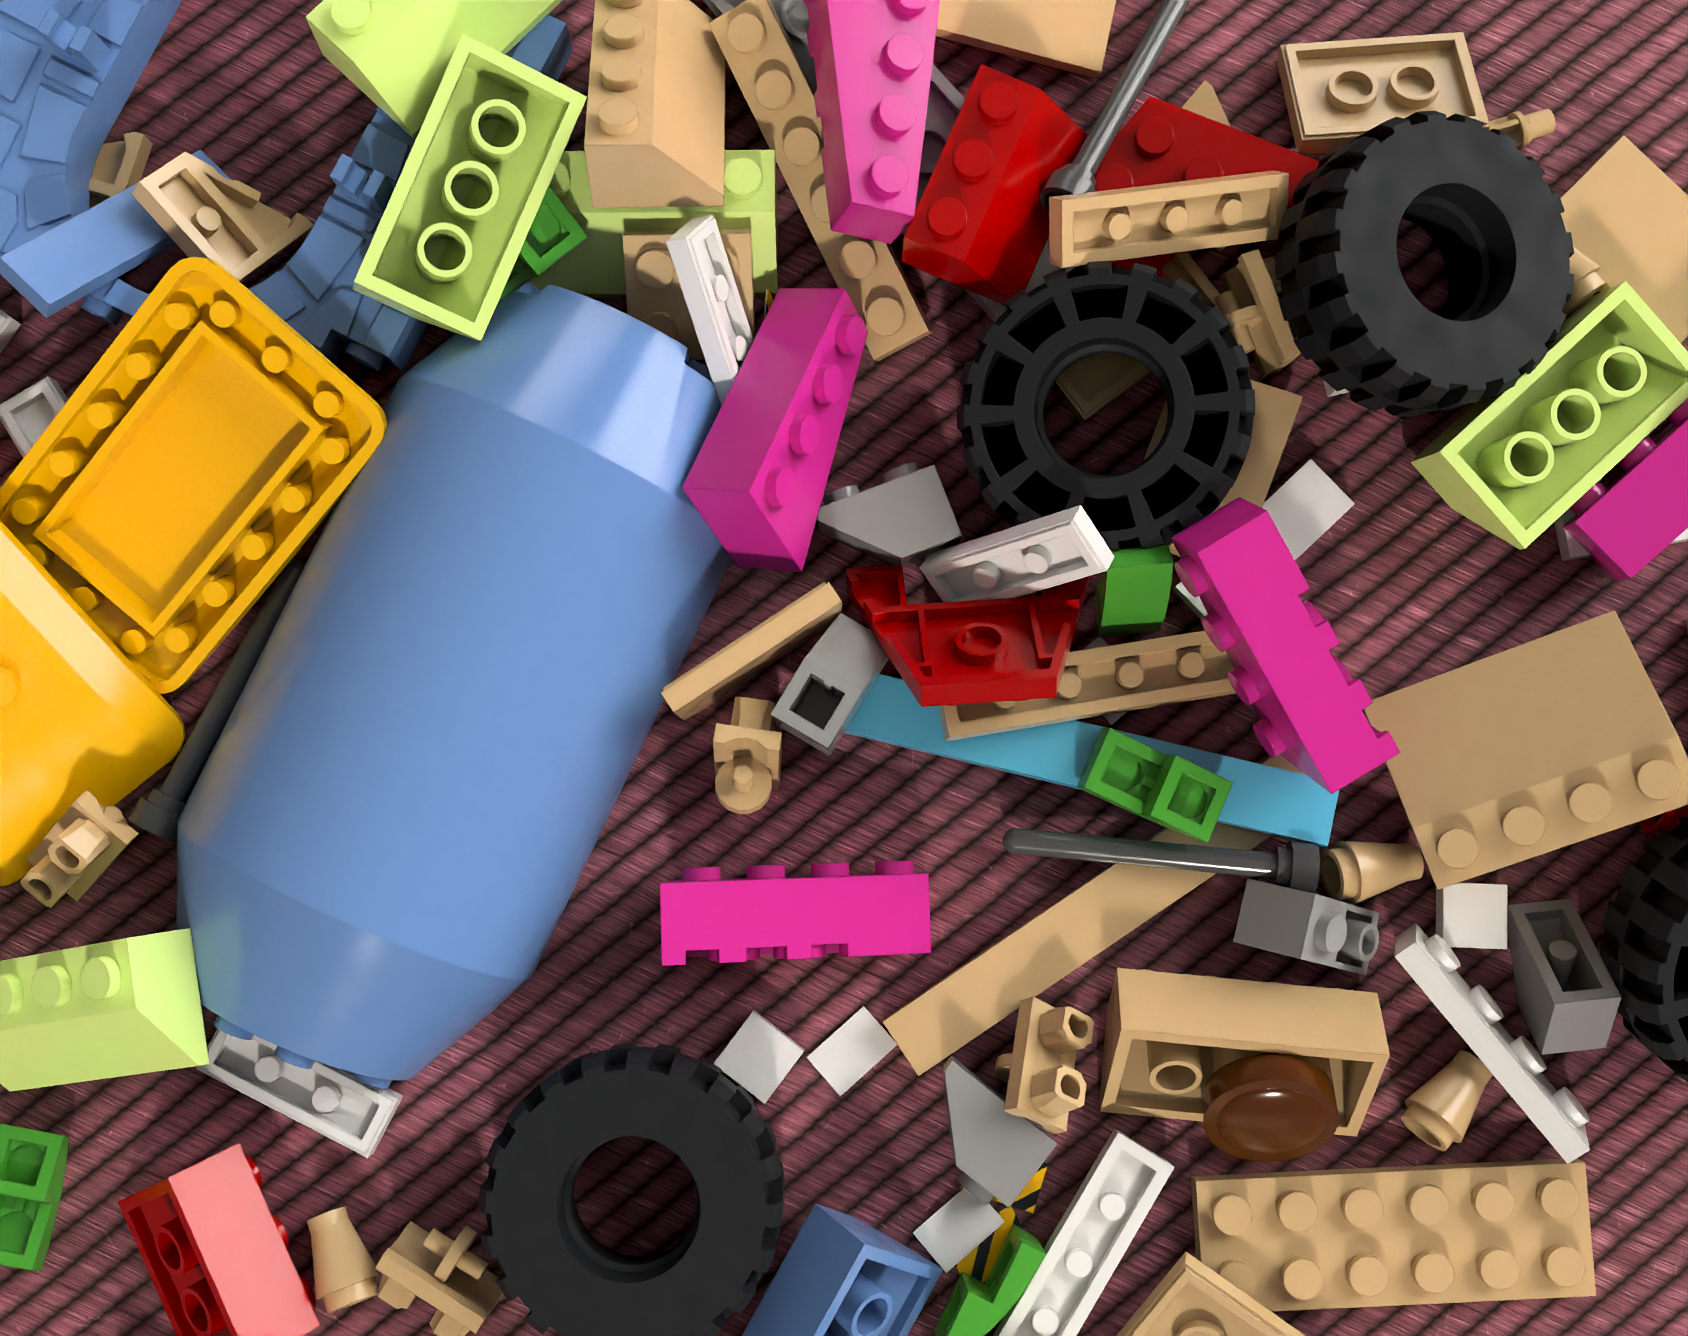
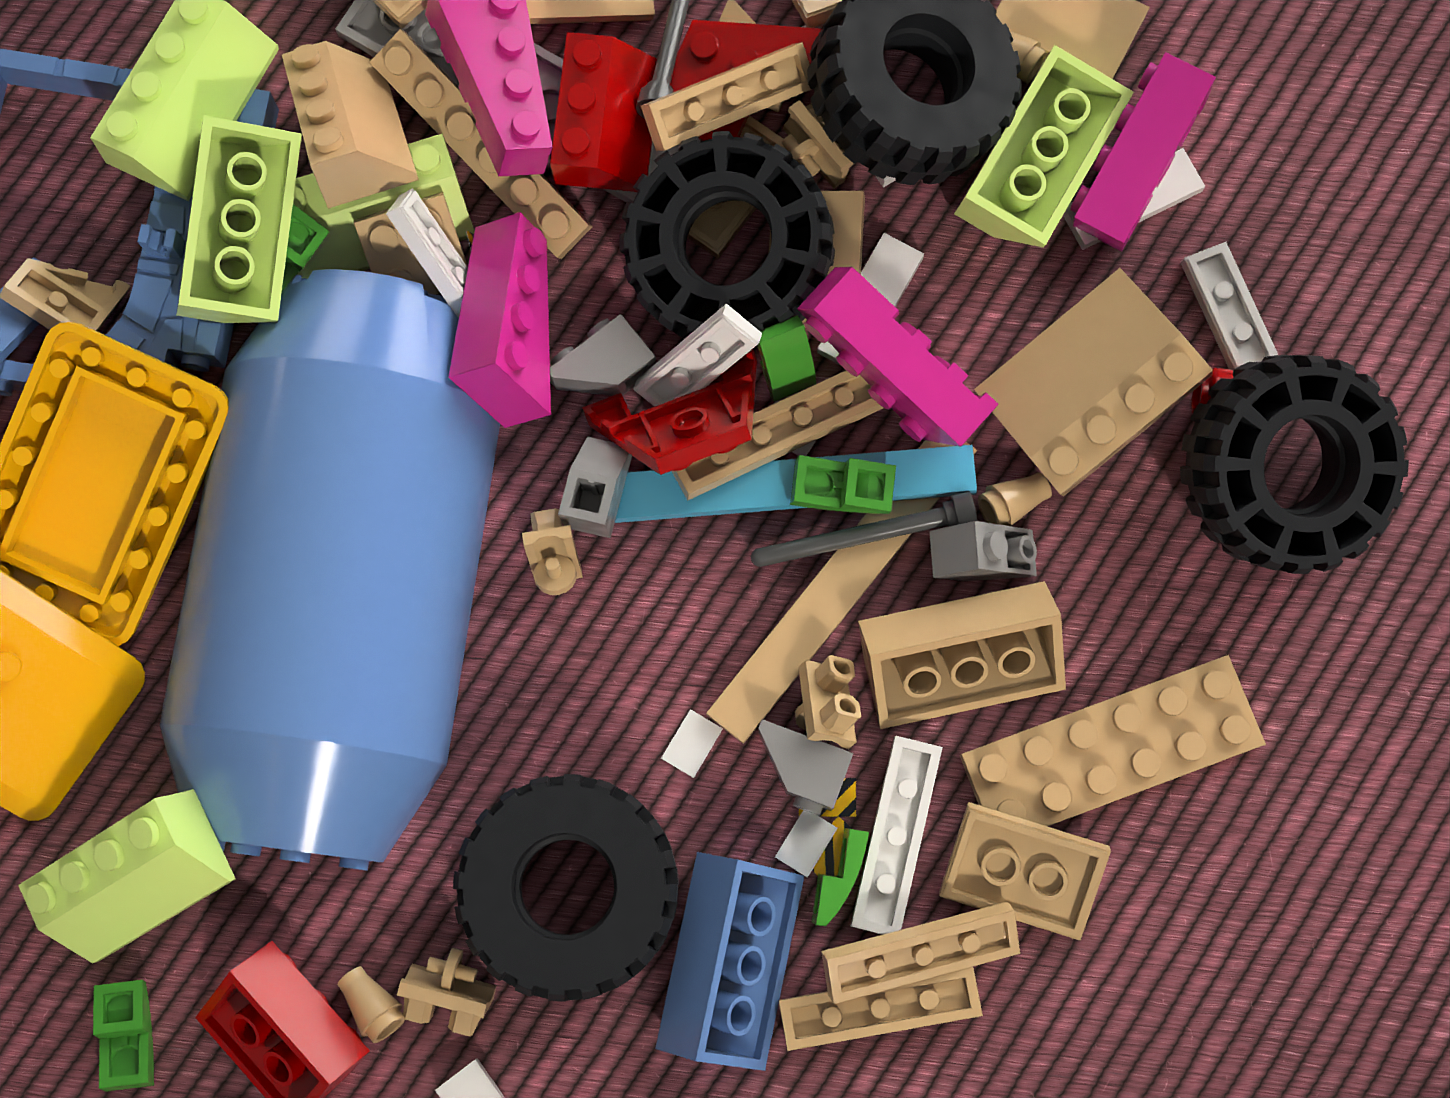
camera: 15 degrees left, 5 degrees down
(77, 851) = (93, 770): tan hips -> none
(164, 806) = (145, 724): dark grey piece -> none
(317, 1097) = (302, 890): white tile -> none
(753, 651) = (533, 481): tan tile -> none
(759, 1056) = (627, 765): white tile -> none
(795, 914) = (620, 654): dark pink wedge -> none
(1269, 1108) = (993, 683): reddish brown piece -> none
(1446, 1102) = (1118, 645): tan cone -> none
(1472, 915) = (1096, 510): white tile -> none
(1477, 1021) = (1153, 599): white plate -> none
(1560, 978) = (1169, 532): light grey slope -> none

